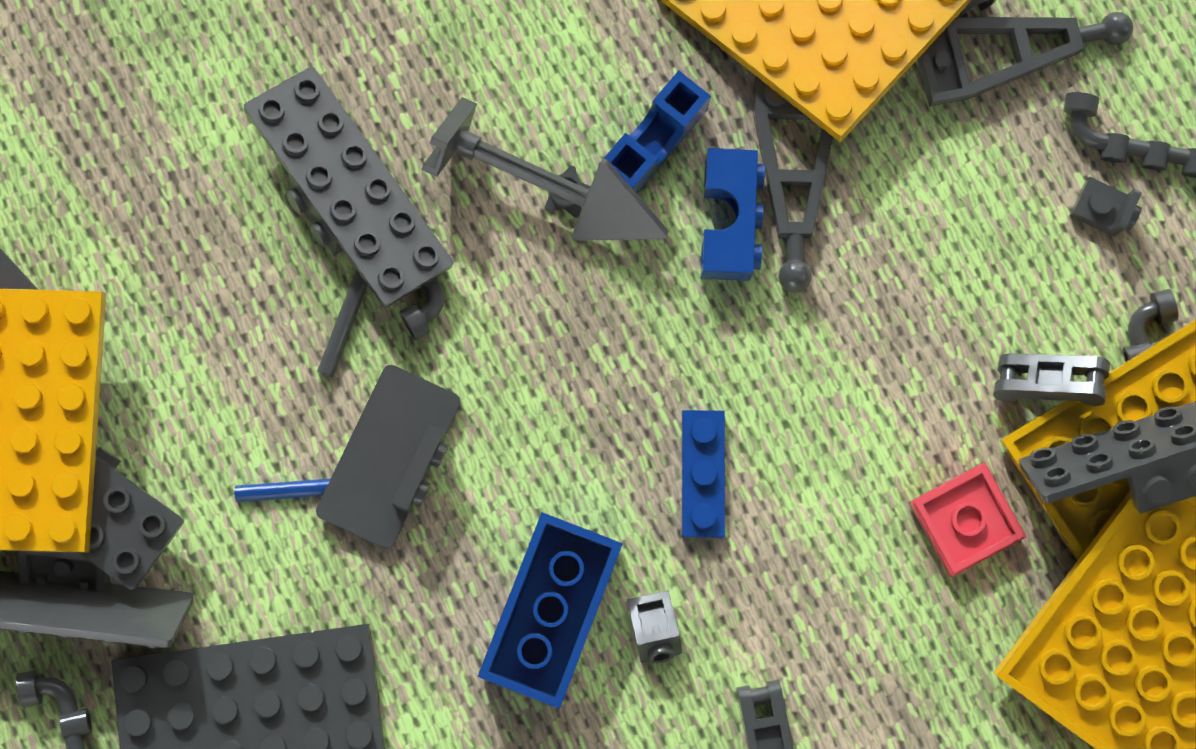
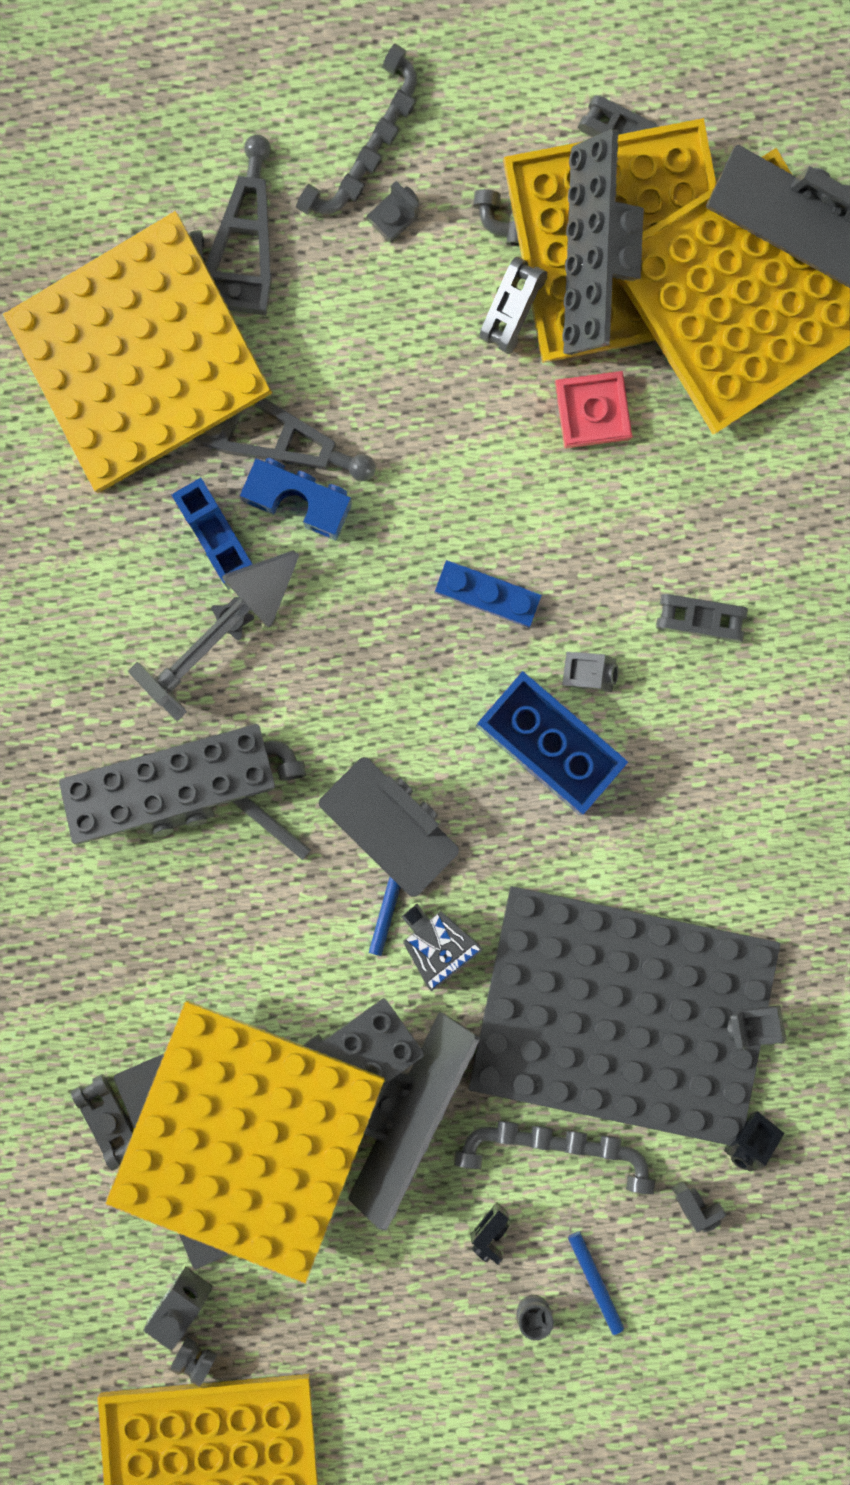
camera: 70 degrees left, 5 degrees up
(268, 562) = (437, 945): none -> torso

